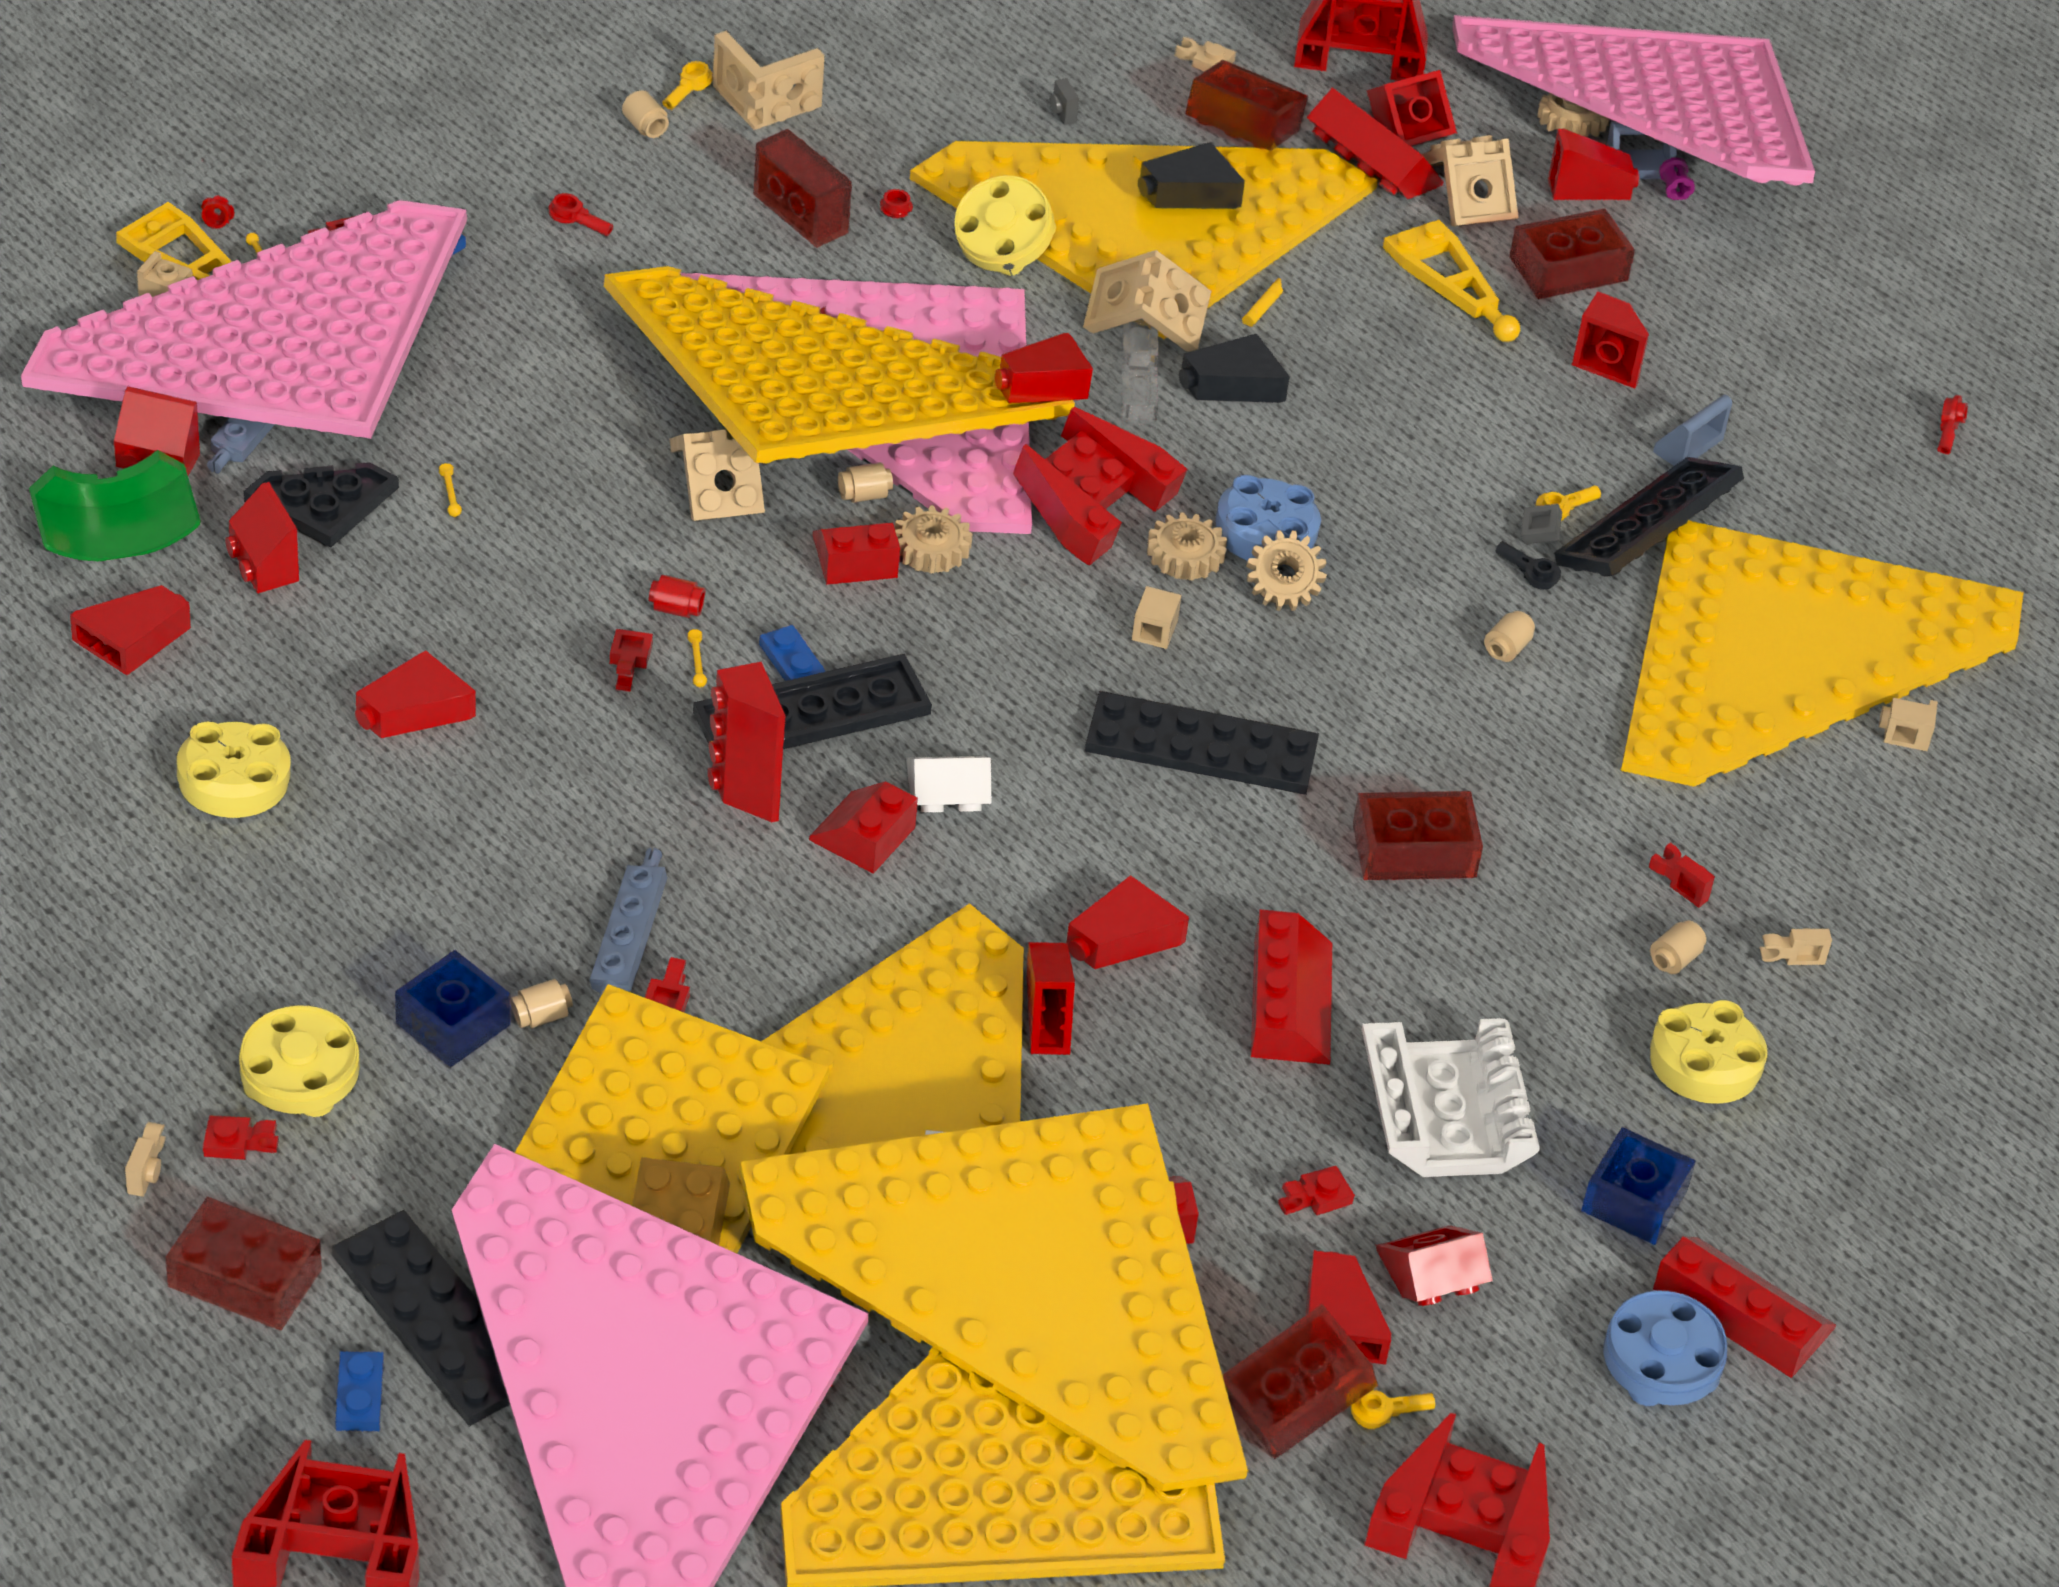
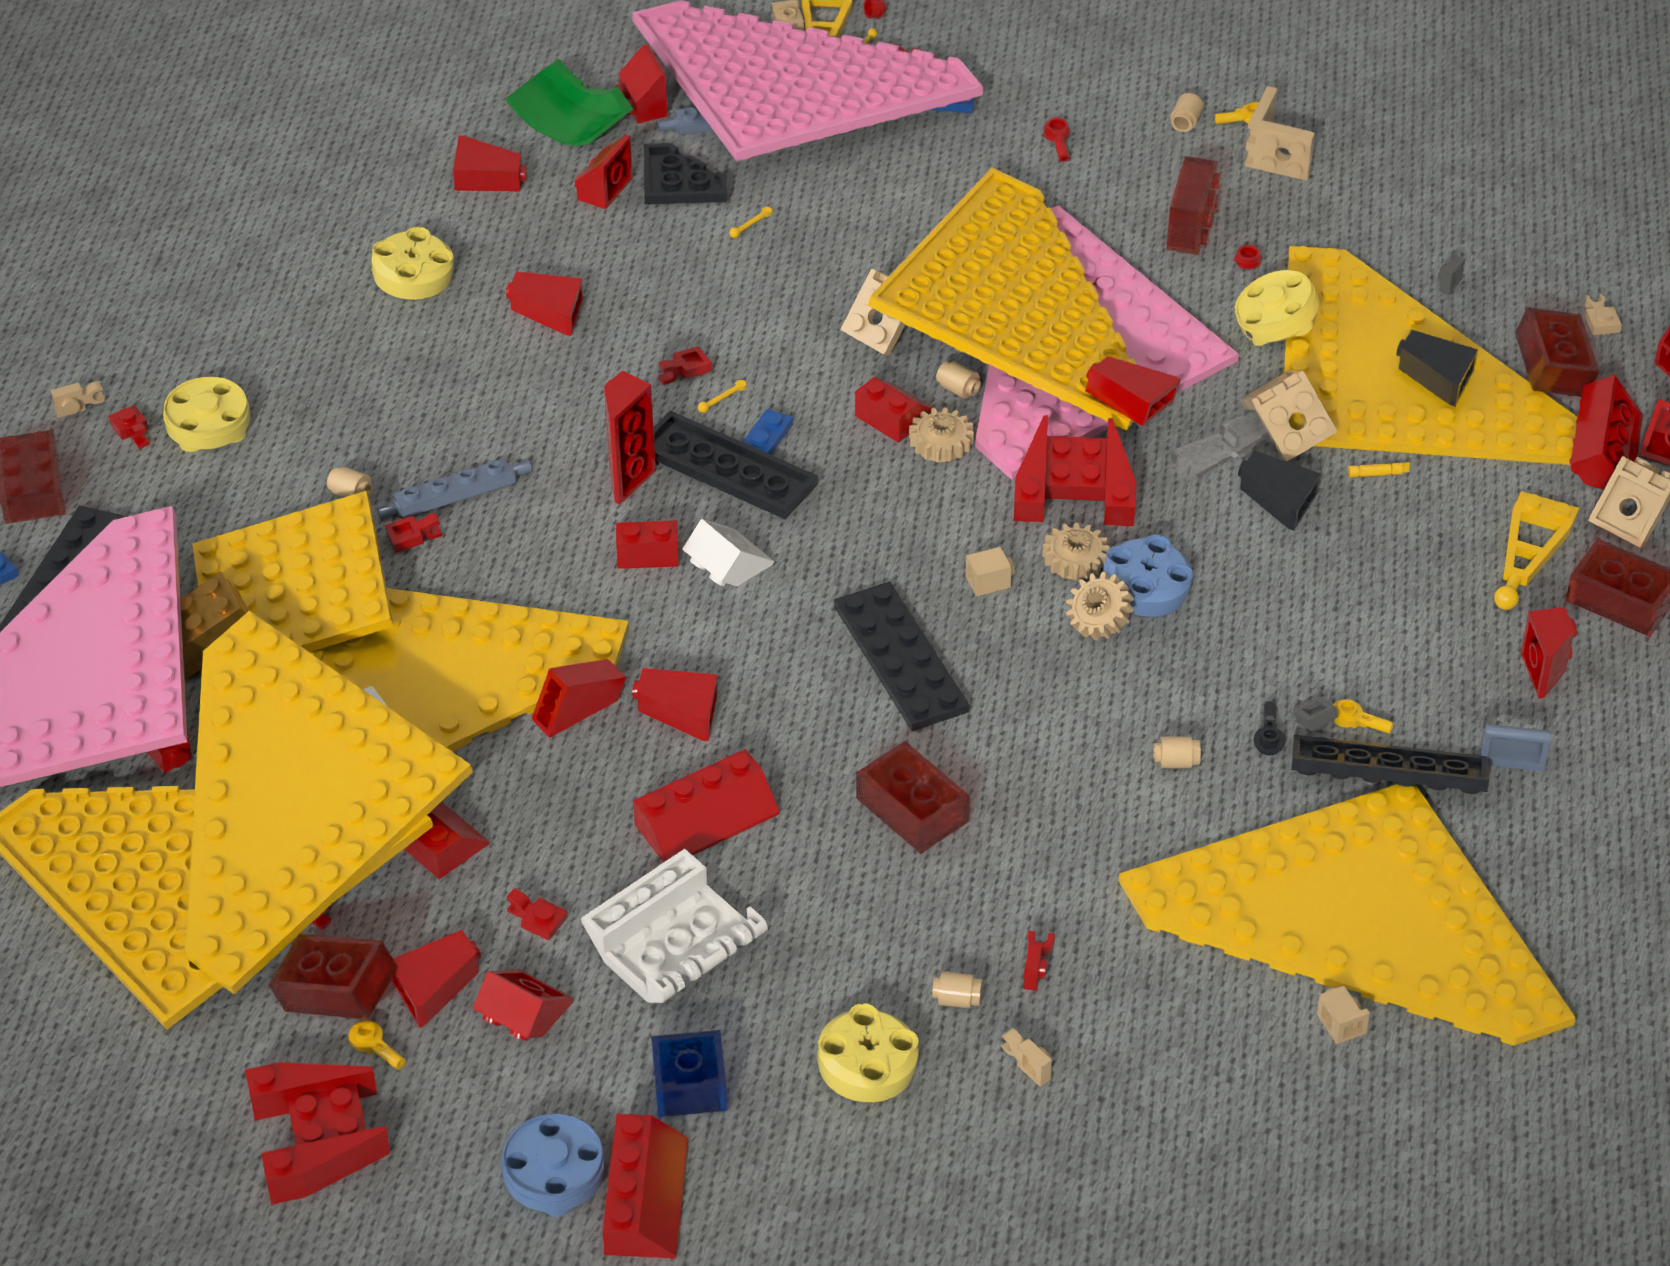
camera: 60 degrees right, 0 degrees up
(453, 1008) = (302, 448): clear blue brick -> none
(677, 596) = (758, 356): red brick -> none

